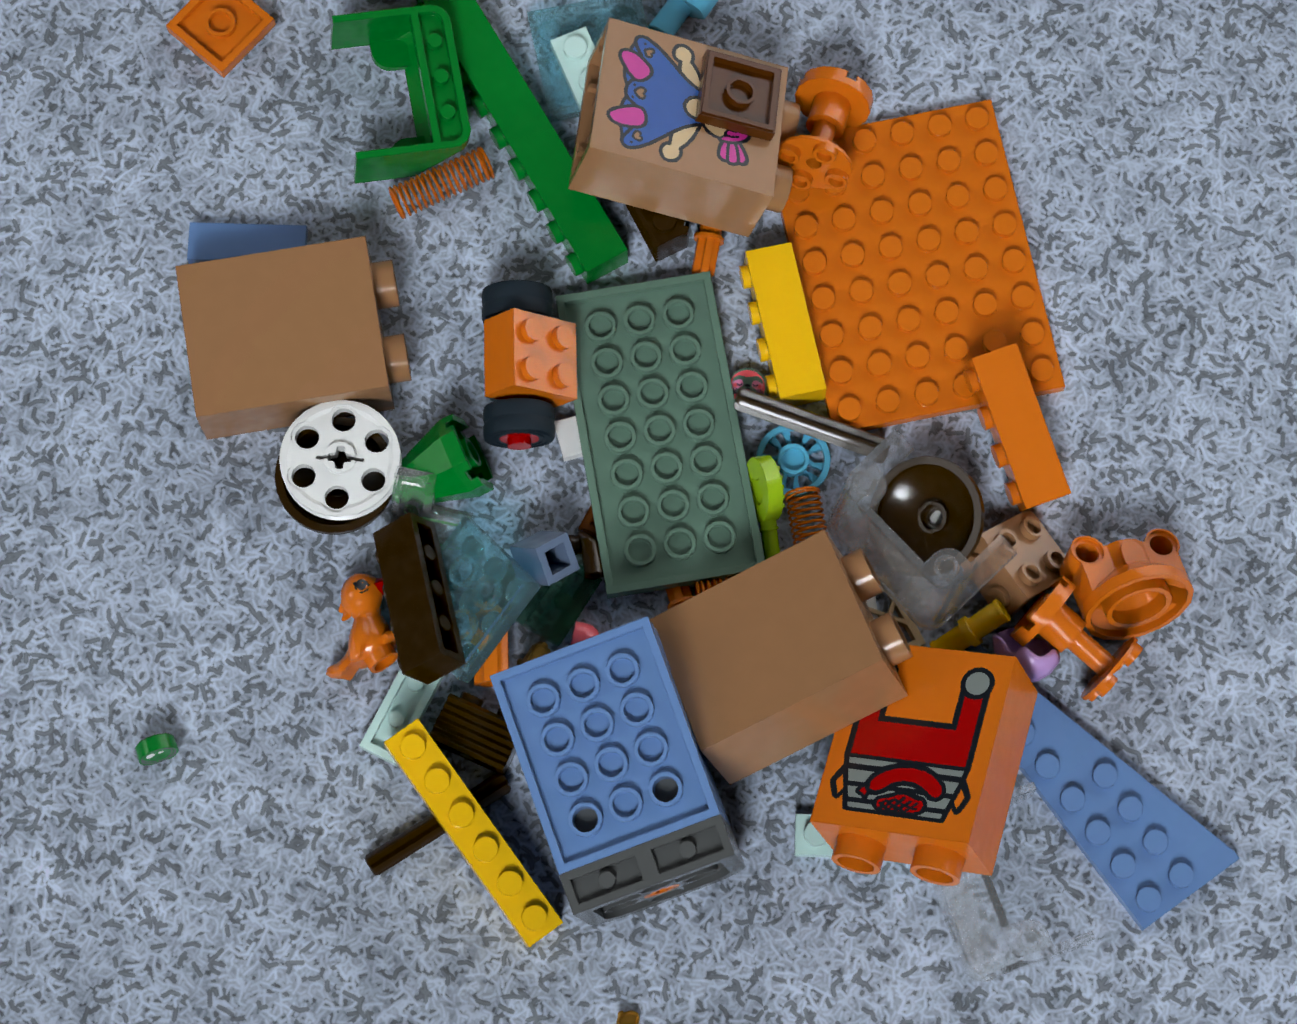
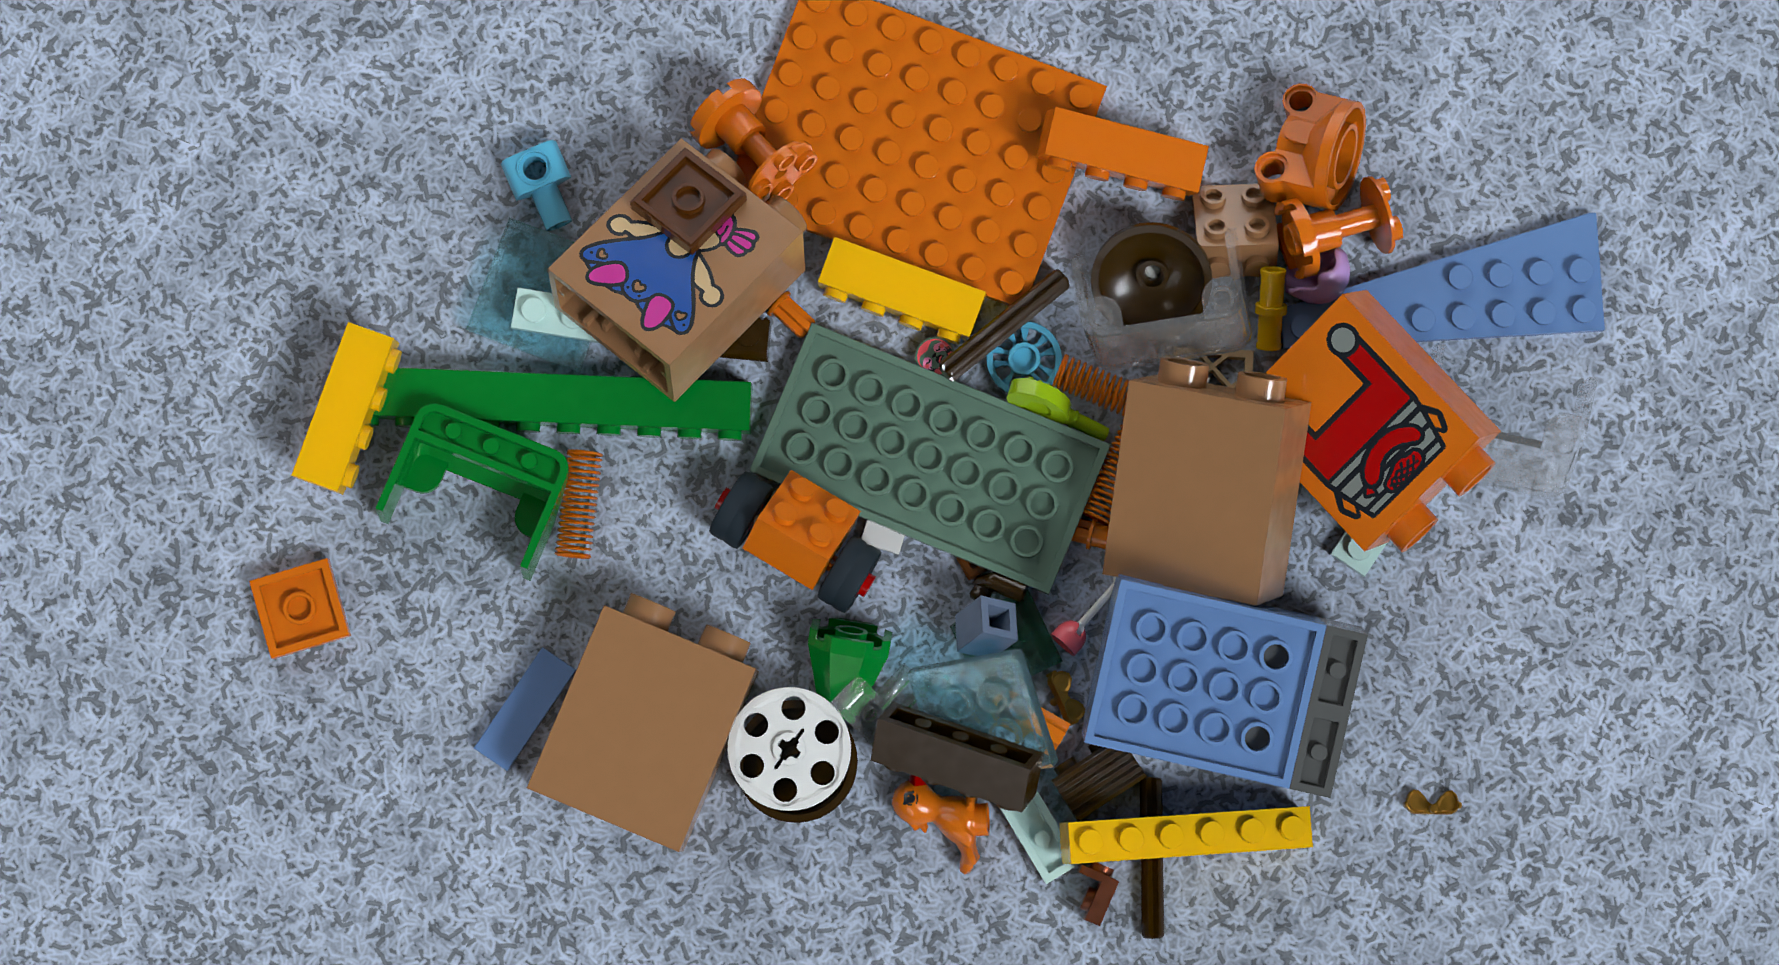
camera: 55 degrees left, 10 degrees up
(373, 798) = (1097, 900): none -> copper bracket

